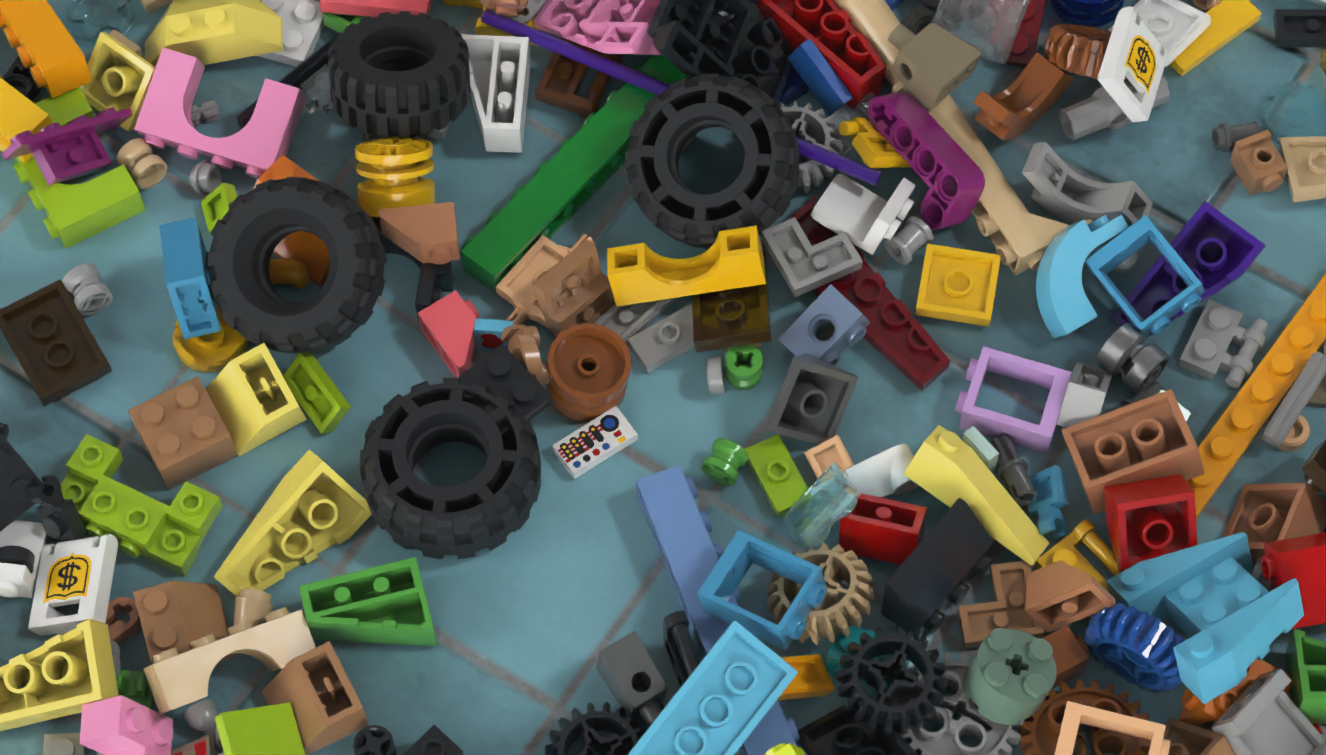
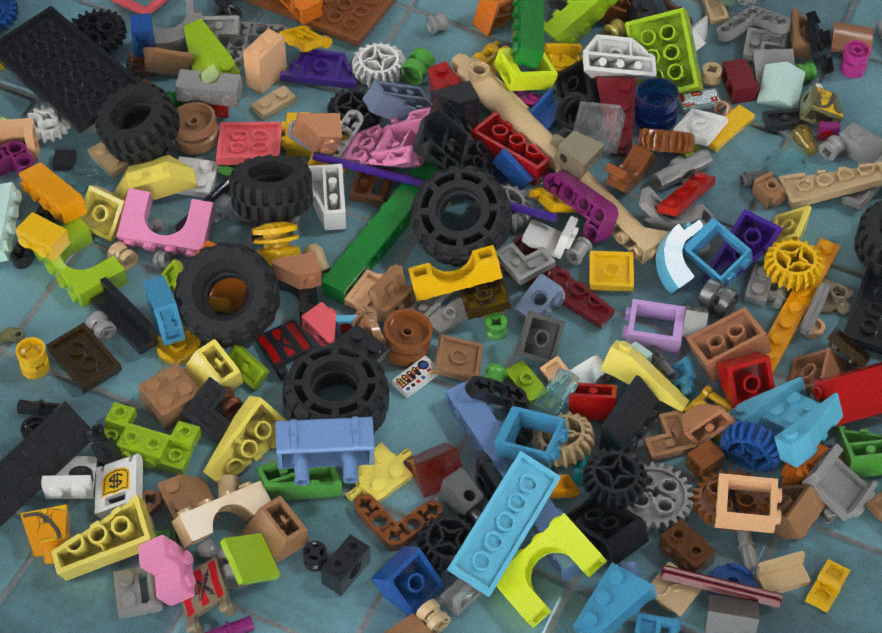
camera: 10 degrees left, 10 degrees down
(69, 149) = (79, 249): magenta bracket -> none
(128, 280) = (126, 317): none -> black fence
(227, 471) = (202, 409): none -> black plate
(272, 450) = (230, 404): none -> copper wheel
(385, 358) = (283, 346): none -> flag
(411, 565) = (325, 444): none -> medium blue piece
(465, 205) = (322, 261): none -> tan cone
(504, 613) = (384, 476): none -> light yellow plate
(512, 715) = (392, 527): none -> dark orange beam
(598, 614) = (433, 466): none -> clear red slope
(670, 419) = (458, 358): none -> medium nougat plate
(715, 375) = (480, 332): light grey tile -> none
(745, 512) = (510, 395): none -> black beam
(1010, 675) = (682, 467): sand green brick -> none
(1110, 159) = (686, 194): none -> red plate
(1137, 55) = (691, 137): white container -> none
(1281, 332) = (793, 264): none -> yellow gear
(1287, 238) = (793, 223): none -> light yellow slope

